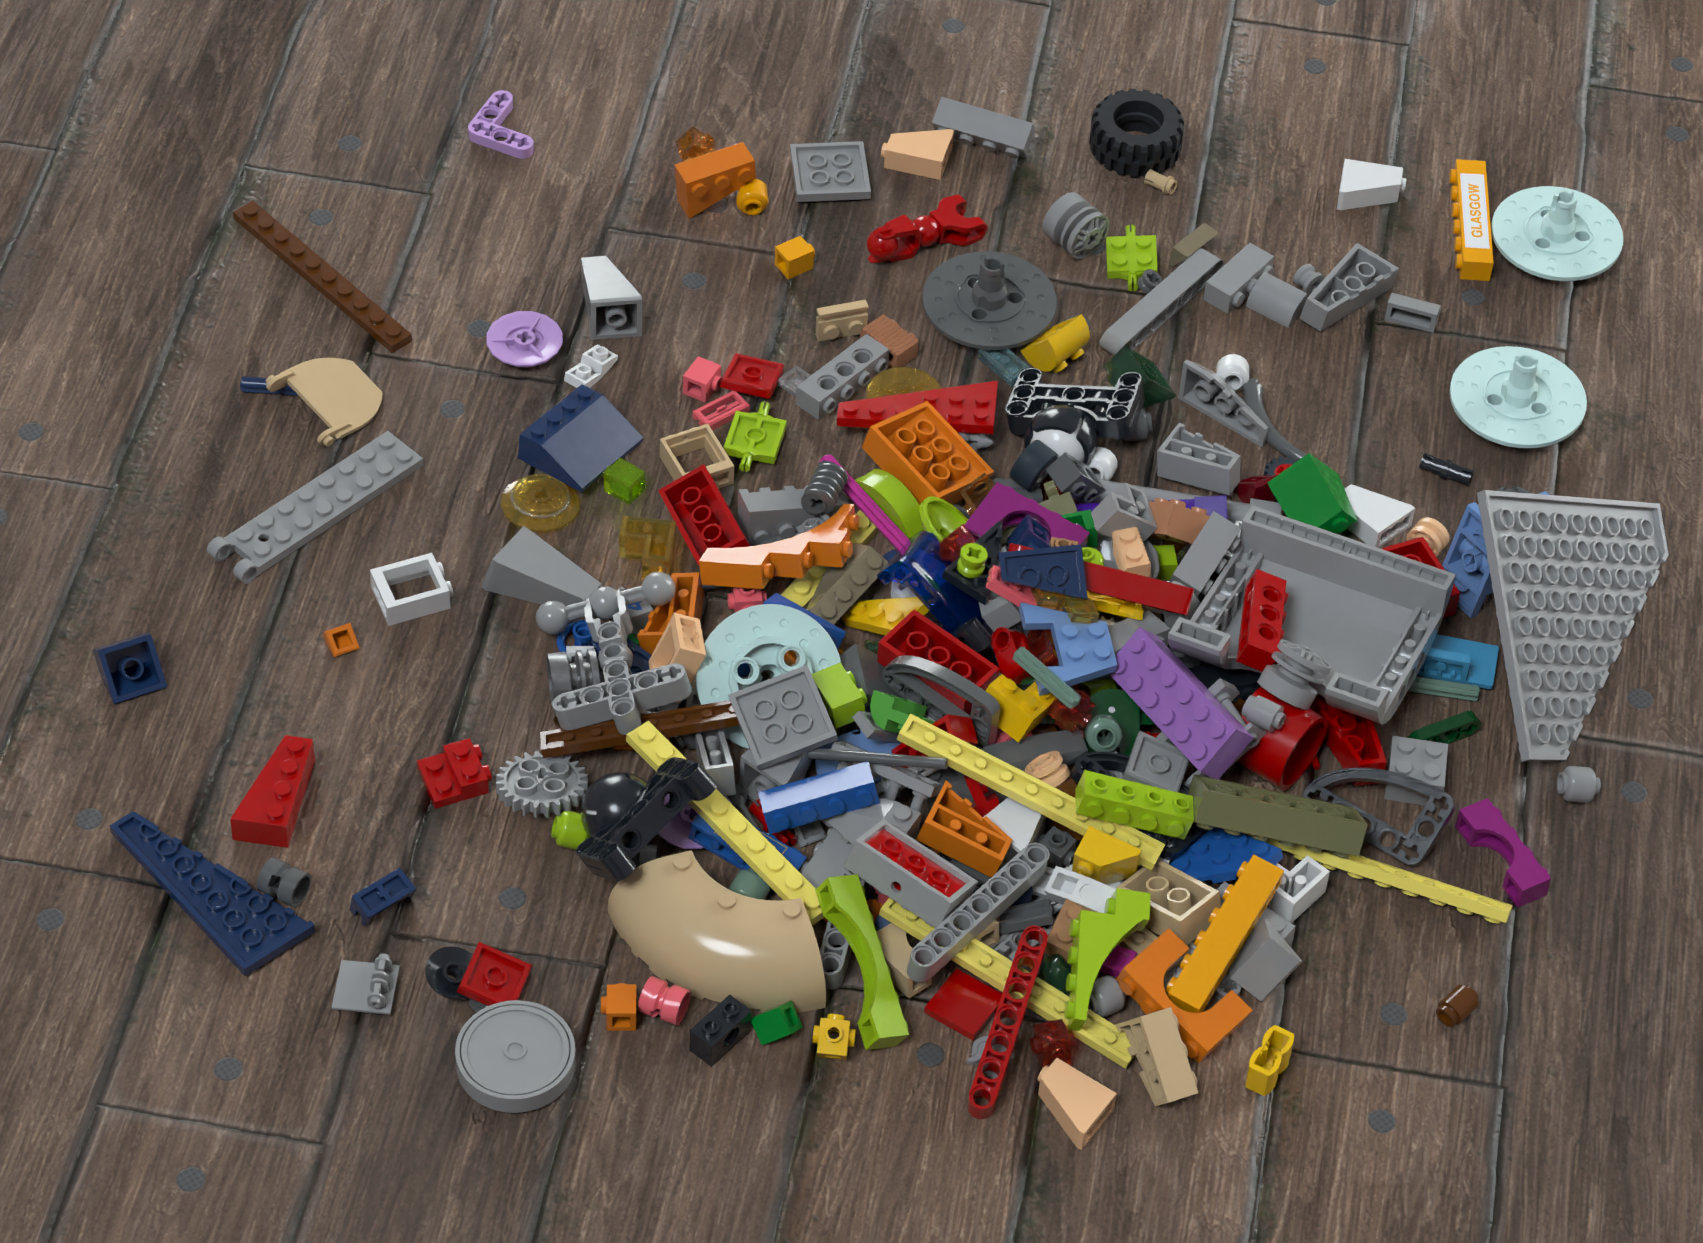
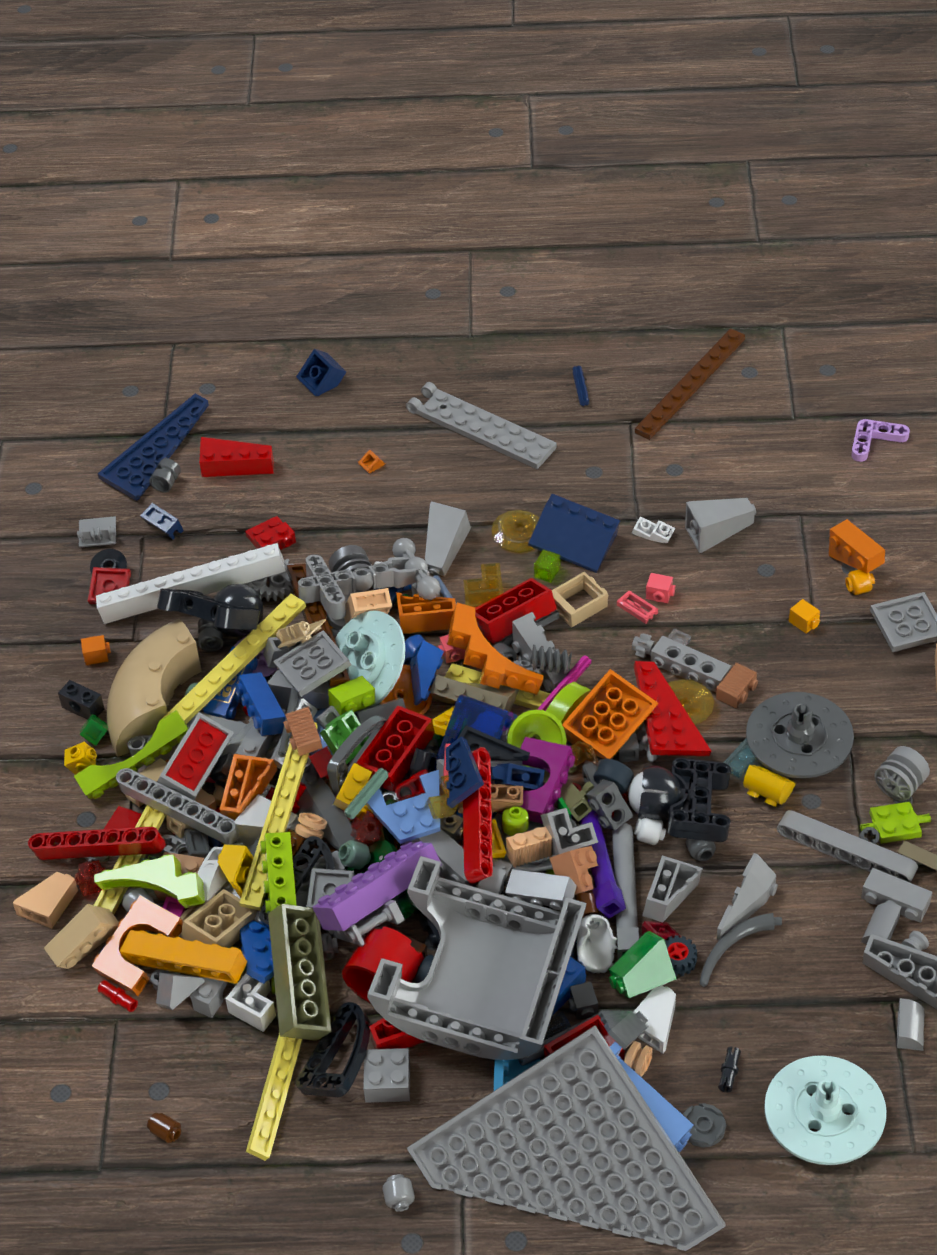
camera: 85 degrees right, 0 degrees up
(335, 392) = (581, 410): tan piece -> none
(417, 605) = (411, 470): white window -> none
(515, 1056) = (48, 606): light grey brick -> none
(524, 338) = (664, 489): lavender piece -> none
(548, 863) = (203, 578): none -> white brick
(665, 1001) = (100, 668): coral wheel -> none
(694, 144) = (892, 539): clear orange brick -> none
(716, 726) = (297, 632): none -> tan hinge
(752, 376) = (674, 614): red tile -> none
(755, 437) = (614, 627): lime plate -> none
(798, 413) = (643, 645): none -> light grey gear
(841, 320) = (744, 651): tan plate -> none
(930, 723) = (303, 731): none -> nougat brick
(942, 225) = (875, 696): red piece -> none
(952, 544) = (502, 732): clear red piece -> none
(972, 560) = (474, 741): lime wheel -> none
(1154, 383) = (754, 837): clear green slope -> none
(1233, 370) = (783, 903): white head -> none
(1247, 1037) = (117, 996): none -> red pin
(1262, 620) = (481, 920): red brick -> none
(1263, 713) = (369, 934): light grey brick -> none
(1269, 1060) = (92, 1007): yellow brick -> none
(1292, 678) = (412, 946): light grey wheel -> none
(1414, 519) = (623, 1025): none -> dark grey wedge
(1445, 688) = (484, 1077): sand green axle -> none
(1449, 729) = (434, 1092): dark green beam -> none
(1485, 827) = (297, 1161): magenta arch -> none

